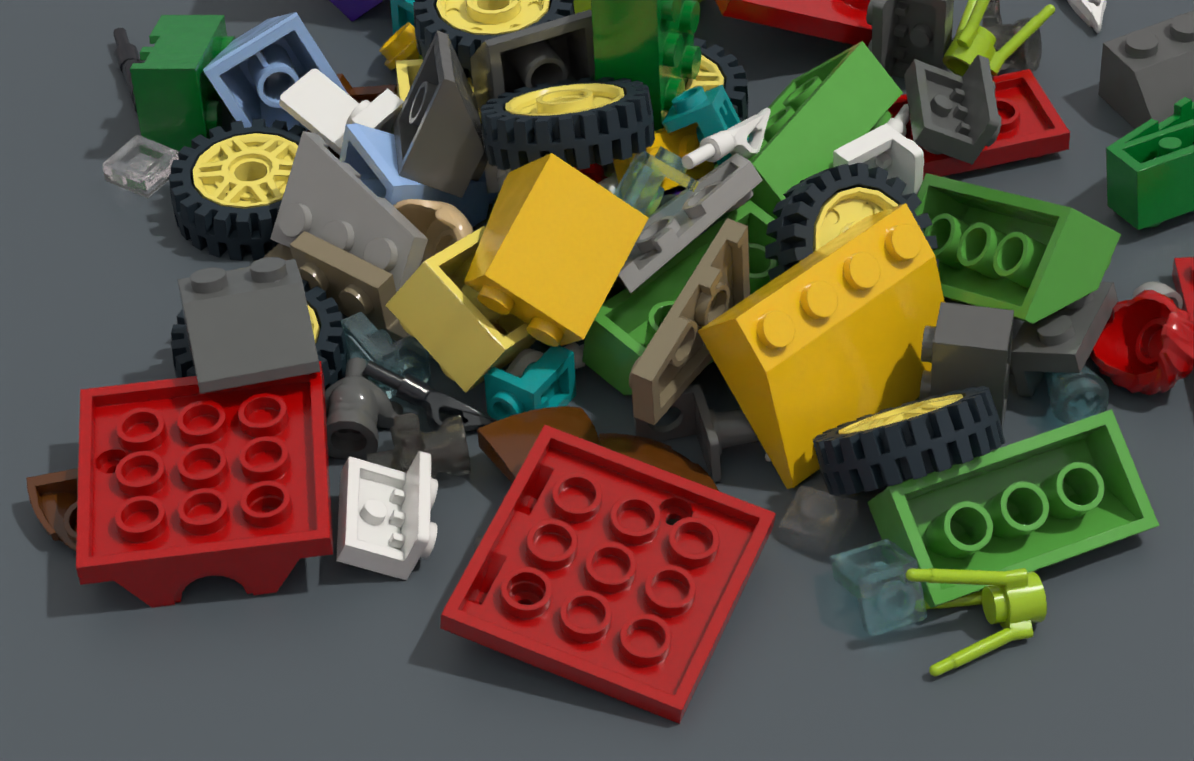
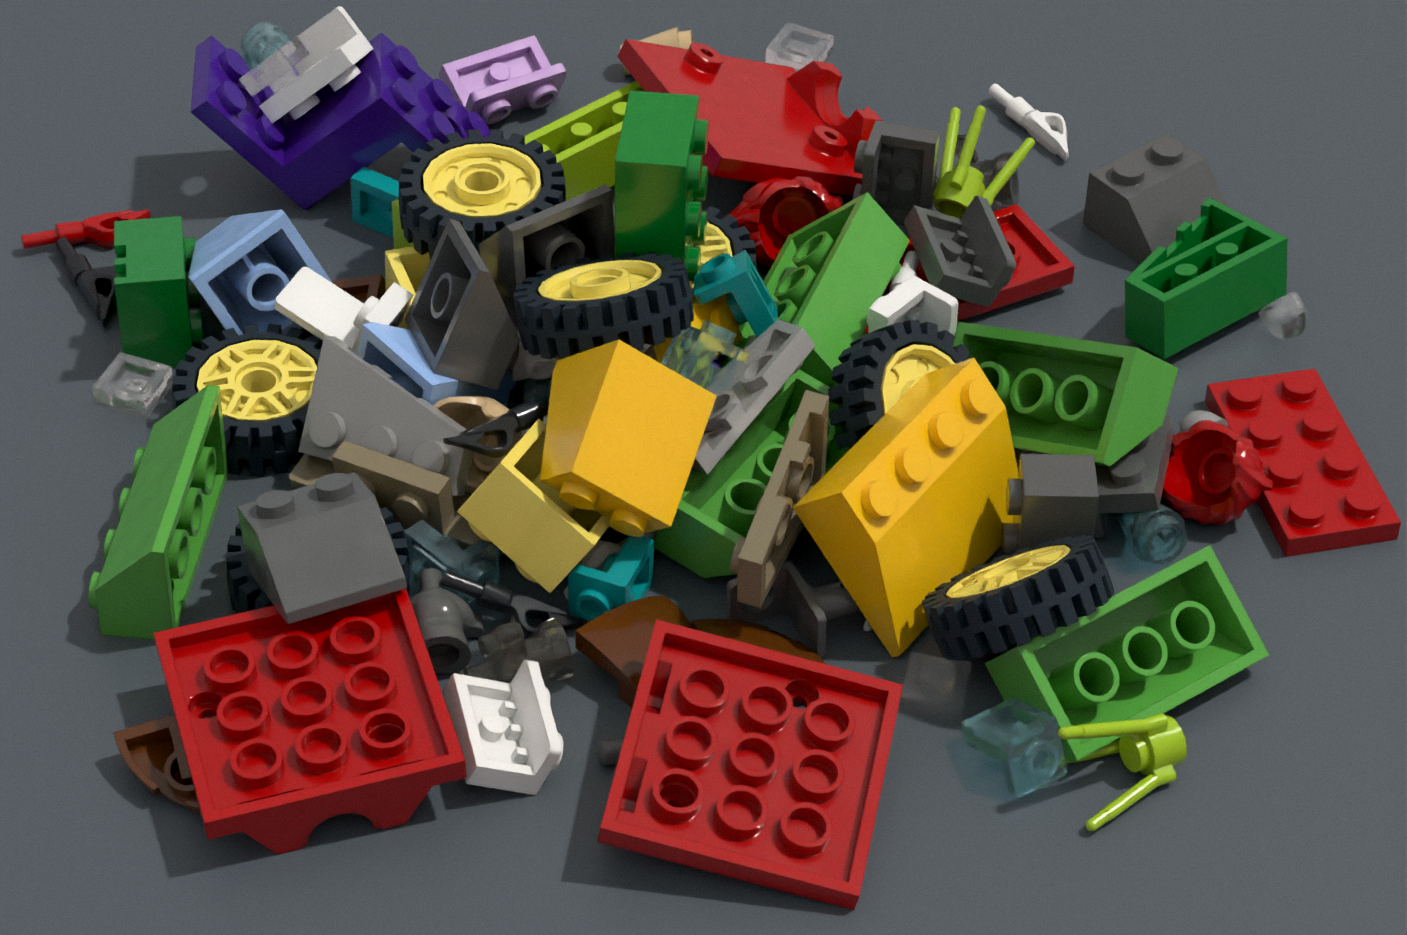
camera: 15 degrees left, 0 degrees up
(130, 291) = (163, 521): none -> bright green slope
(136, 24) = (93, 230): none -> red hand
(400, 46) = (373, 234): yellow plate -> none
(449, 230) = (503, 427): none -> black hand
(731, 141) = (775, 304): white hand -> none
(784, 54) = (779, 209): none -> red hair

